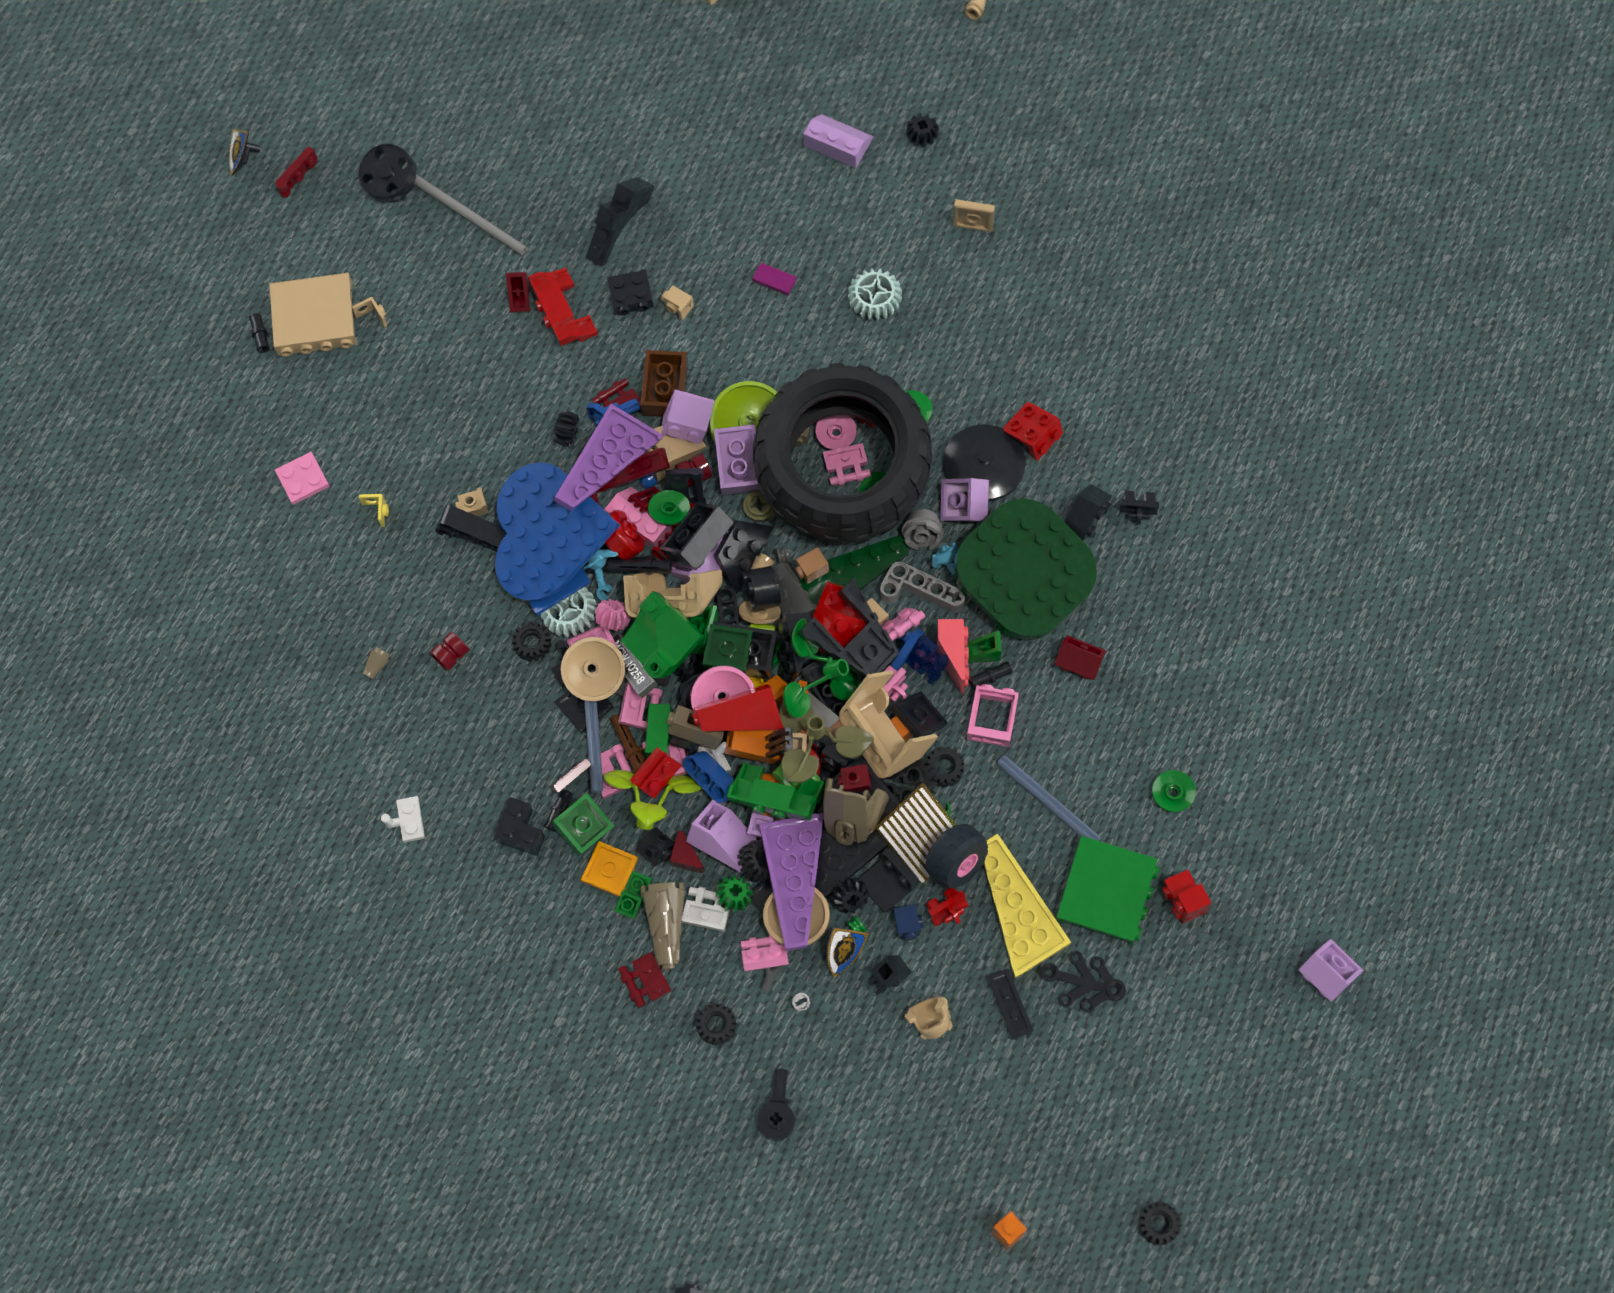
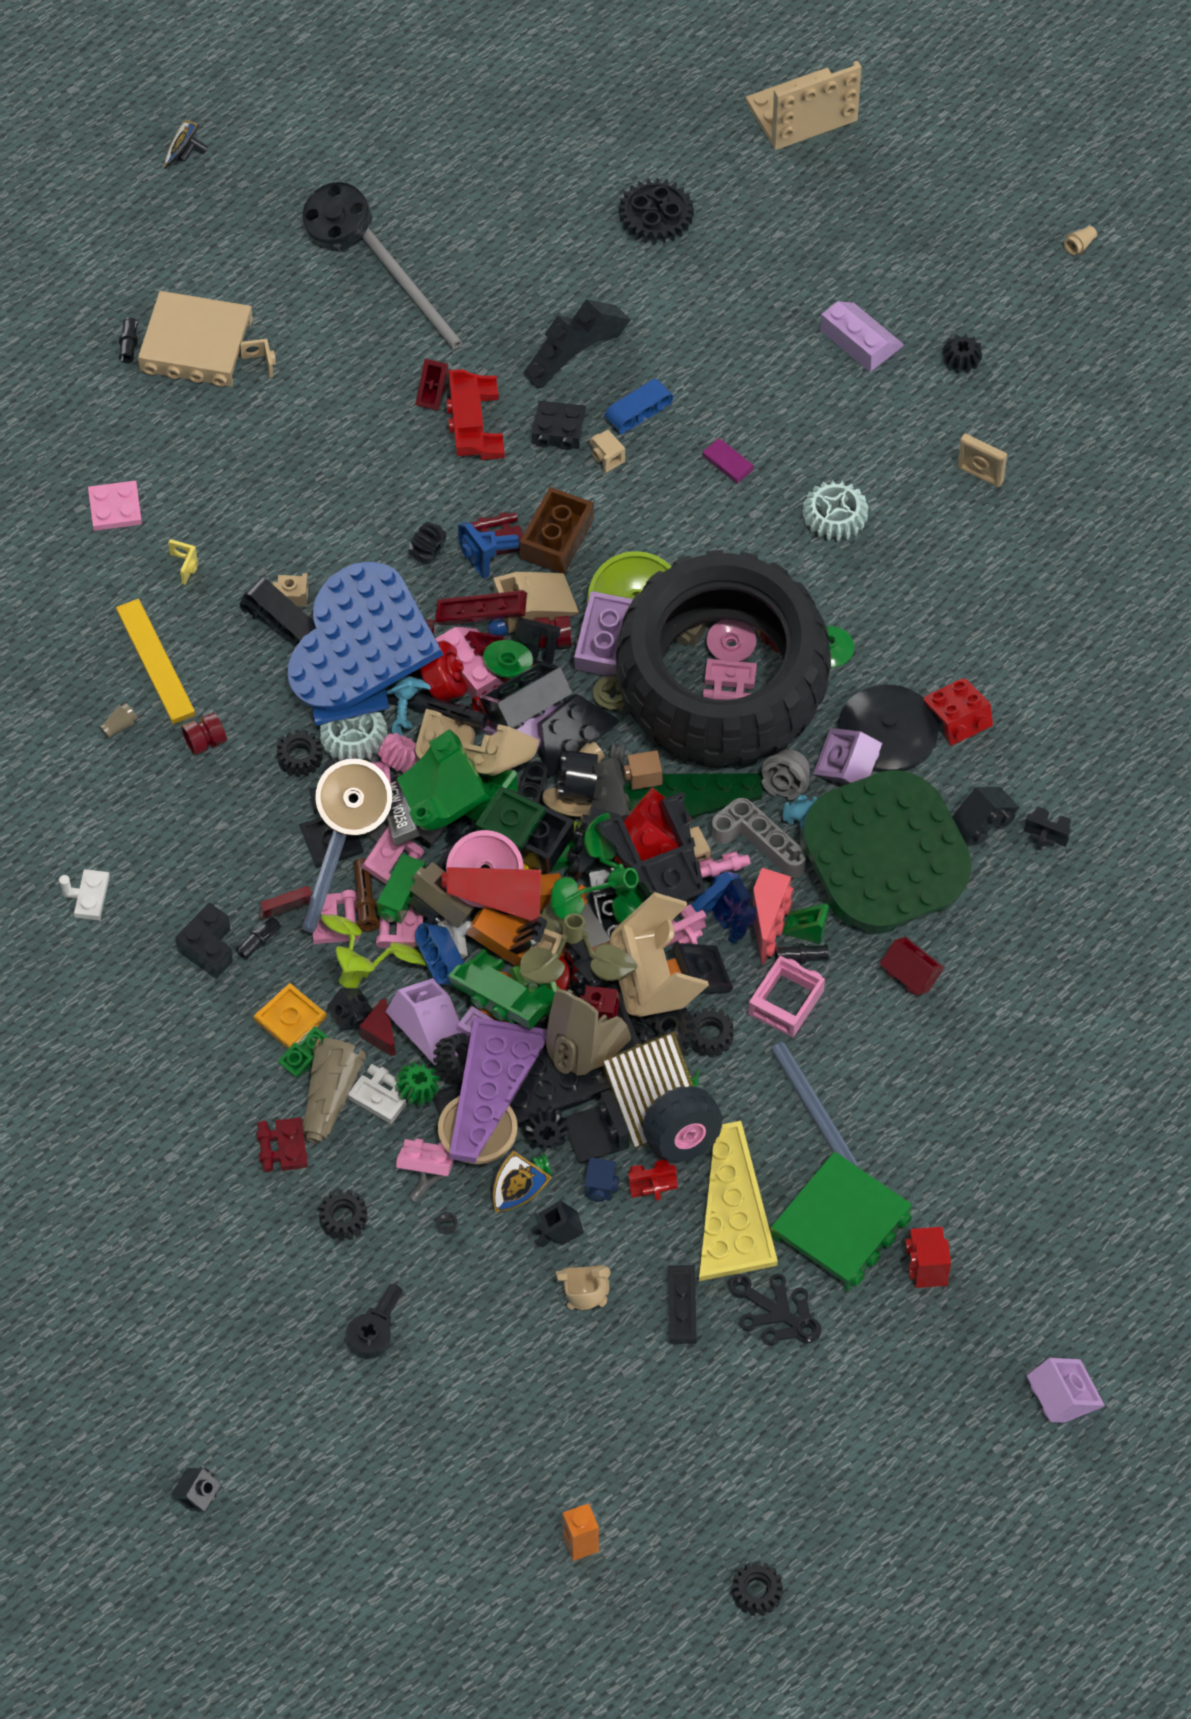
camera: 15 degrees right, 10 degrees down
(296, 171) = (236, 185): dark red plate -> none
(386, 601) = (155, 661): none -> yellow tile
(582, 824) = (277, 957): green brick -> none
(611, 449) = (463, 573): medium lavender wing -> none
(638, 86) = (668, 204): none -> black gear
(655, 772) = (380, 928): red plate -> none
(687, 256) = (638, 405): none -> blue beam
(687, 416) = (567, 570): lavender slope -> none
(1175, 781) = (966, 1132): green dish -> none

